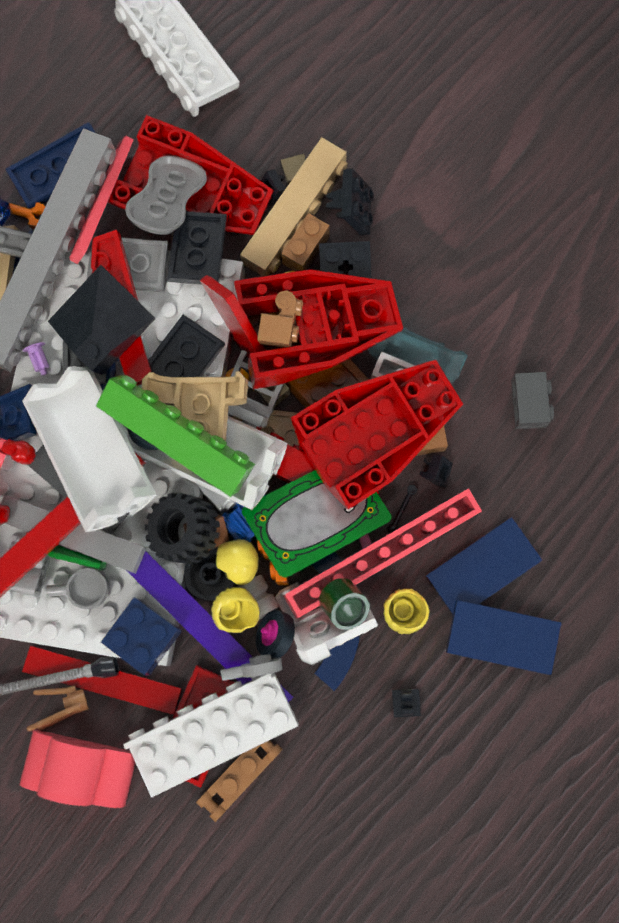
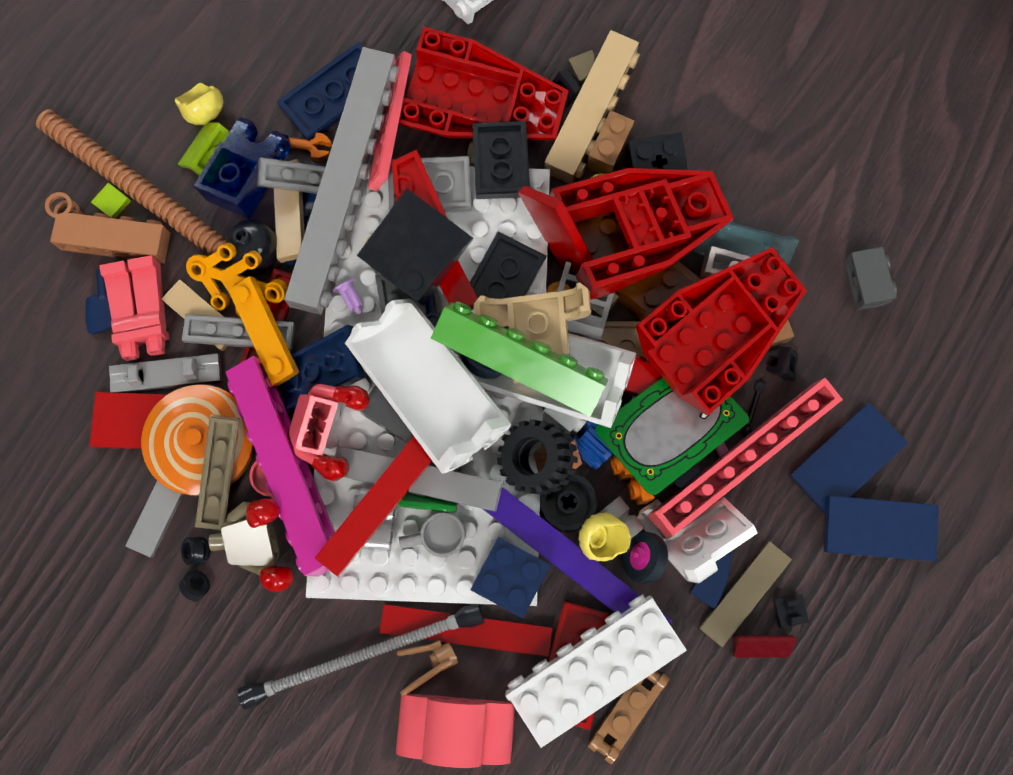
camera: 15 degrees left, 0 degrees up
(162, 203) = (458, 113): light grey plate -> none
(238, 560) = (598, 483): light yellow hair -> none
(257, 666) = (636, 593): light grey piece -> none
(281, 329) = (610, 234): medium nougat brick -> none
(344, 604) = (720, 515): dark green piece -> none
(354, 202) = (654, 94): black plate -> none
(365, 681) = (745, 594): none -> dark tan tile
(374, 732) = (763, 646): none -> dark red slope
(406, 611) = (778, 514): light yellow hair -> none

